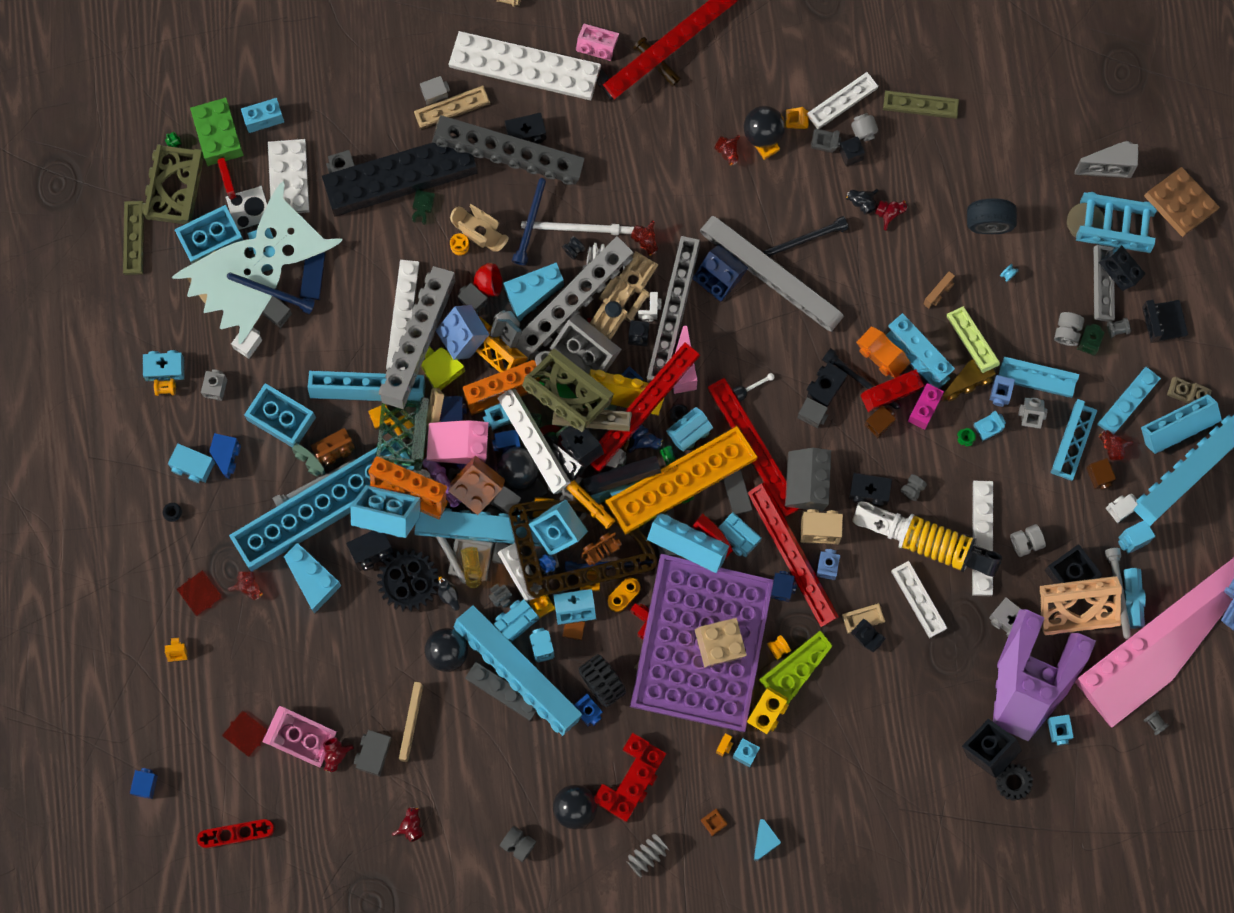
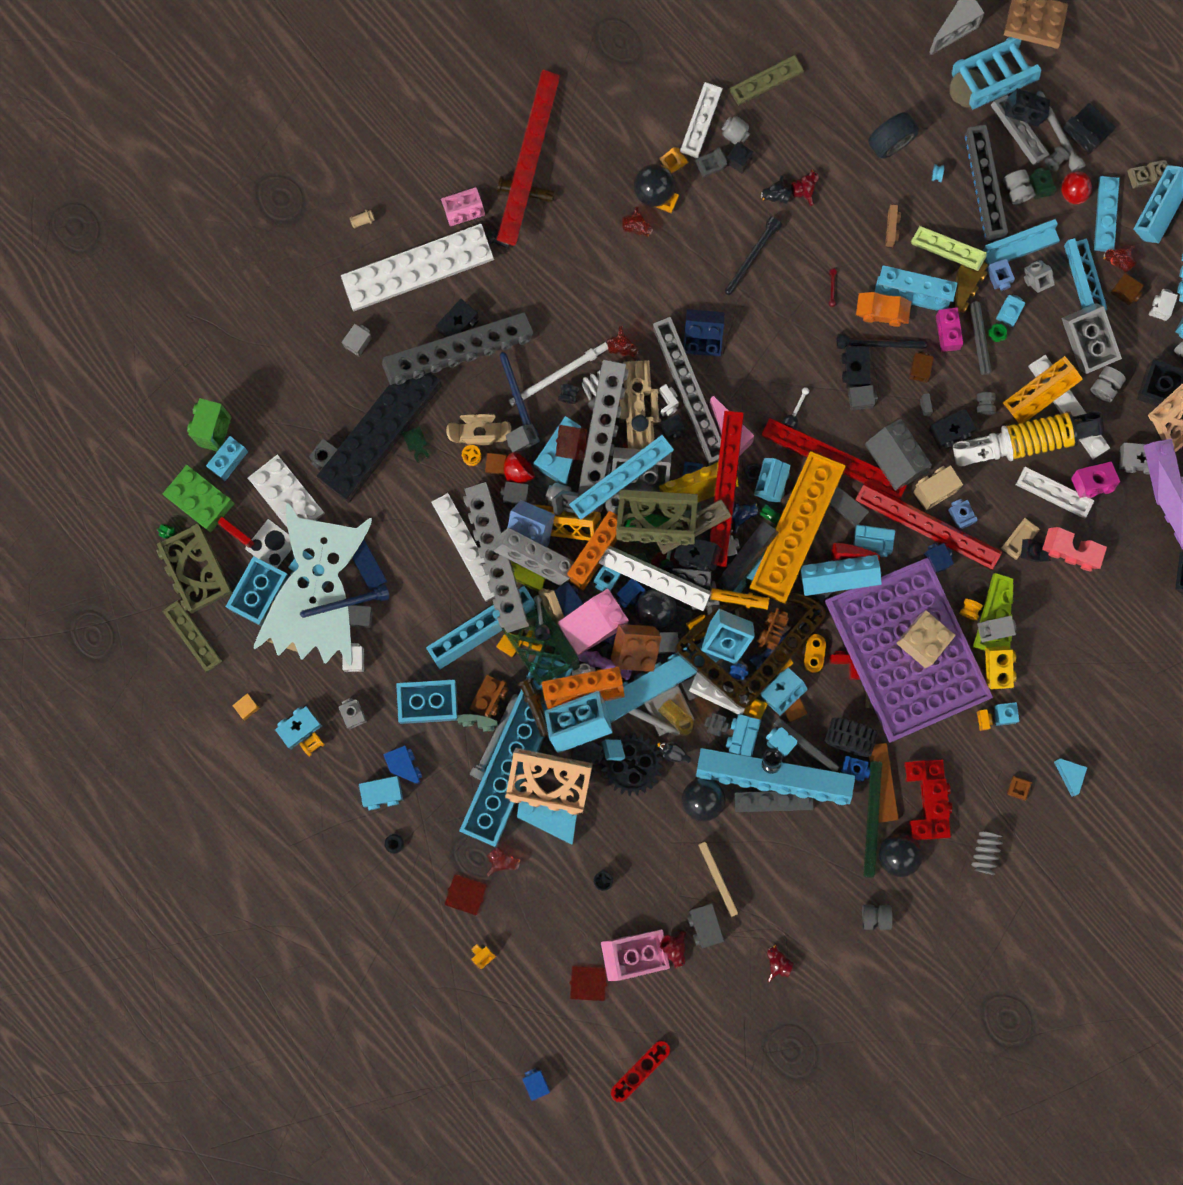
camera: 30 degrees left, 5 degrees up
(134, 322) = (246, 707): none -> light orange slope
(266, 77) = (209, 424): none -> bright green brick
(316, 658) = (603, 881): none -> black wheel
(354, 544) = (530, 760): none -> light nougat fence
(362, 468) = (532, 698): none -> dark brown pin
(400, 556) = (613, 749): none -> medium azure tile
(410, 421) = (542, 631): none -> black hinge
(446, 355) = (533, 556): none -> light grey brick
(452, 107) = (381, 344): tan tile -> none
(473, 263) = (495, 463): none -> dark orange tile
(508, 257) = (522, 438): none -> dark grey brick
(521, 649) = (772, 756): none -> black wheel
(544, 286) = (571, 442): none -> clear red piece
(561, 663) = (807, 746): none -> dark grey tile
(562, 339) = (621, 477): none -> medium azure plate
(573, 761) = (872, 819): none -> clear green axle
(603, 739) = (887, 806): none -> dark orange tile
(772, 274) = (747, 304): light grey beam -> none
(786, 674) = (997, 628): none -> light grey brick
(862, 454) = (926, 406): none -> dark grey tile
(863, 296) = (832, 273): none -> dark red hinge
(889, 642) = (1060, 544): none -> coral arch
(892, 390) = (914, 335): red brick -> none
(948, 431) = (980, 338): none -> dark grey axle
(967, 511) = (1044, 392): none -> light orange fence
(970, 611) = (1102, 473): none -> dark pink brick
(1039, 492) = (1091, 338): none -> light grey brick
(1042, 307) = (986, 183): none -> dark grey brick
(1118, 362) = (1076, 187): none -> red hat
(1132, 341) = (1076, 162): none -> light grey piece

